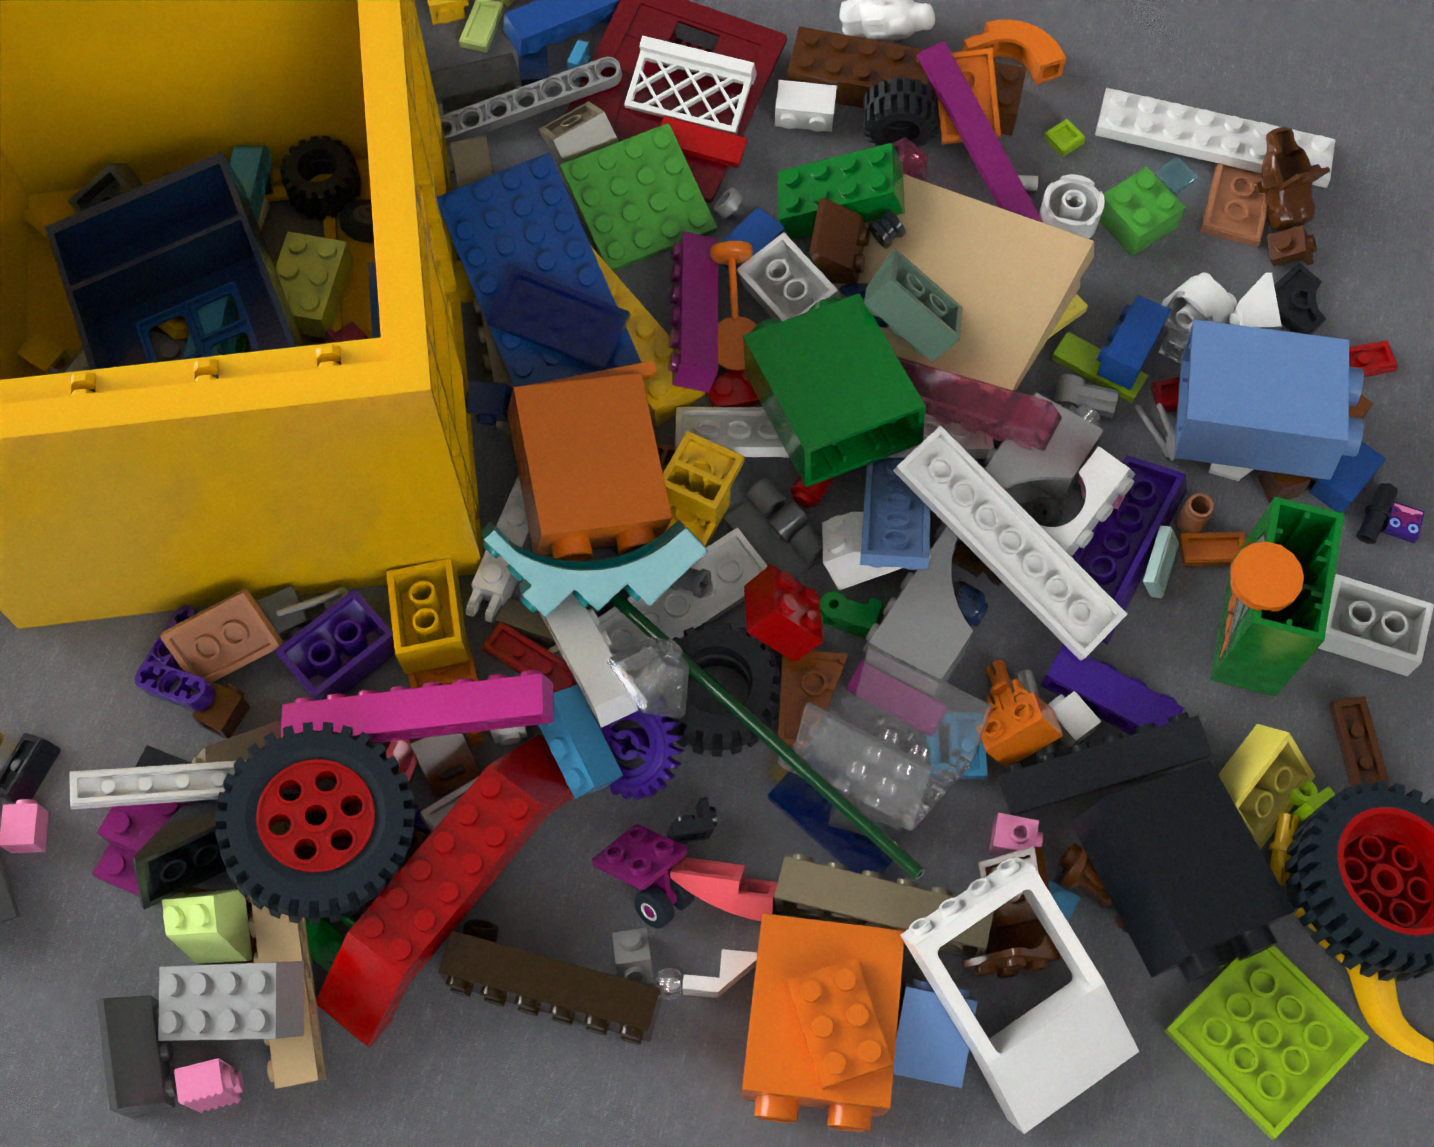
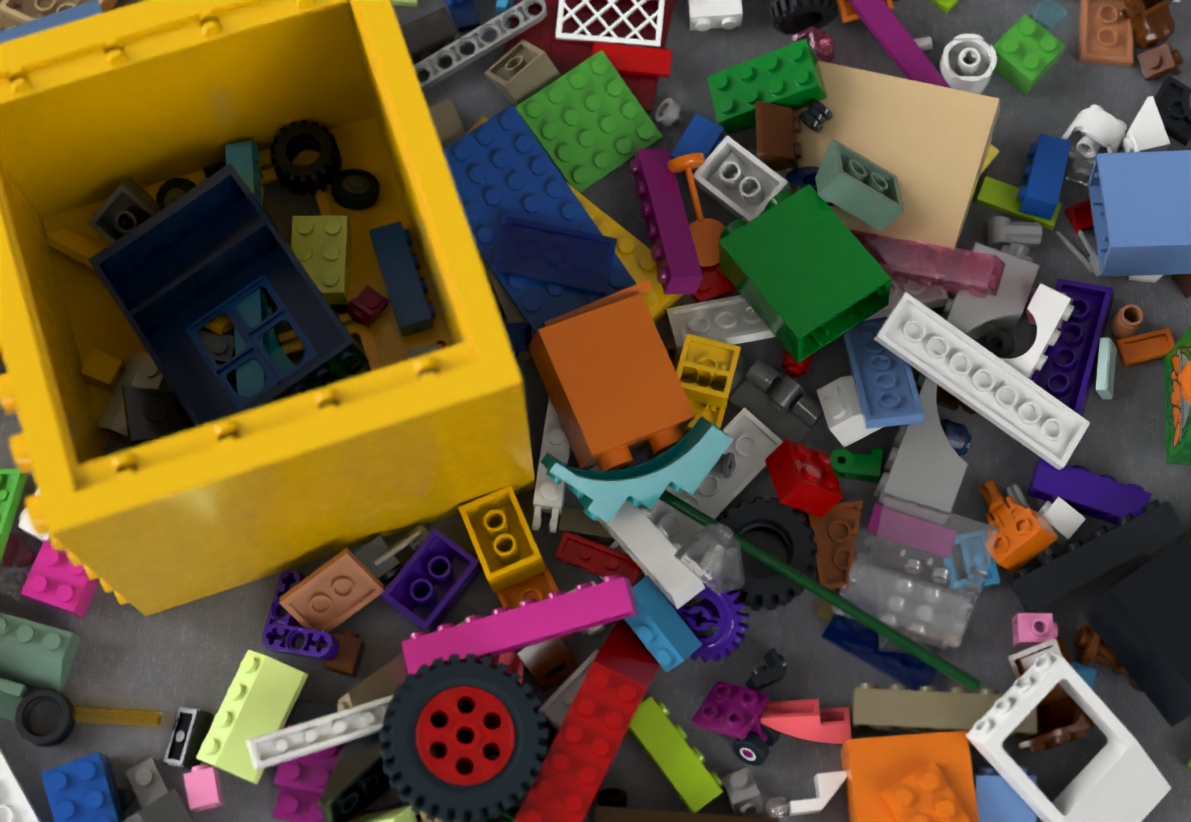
camera: 10 degrees left, 5 degrees up
(107, 737) = (254, 706): none -> yellowish green slope
(562, 897) = (673, 756): none -> lime brick

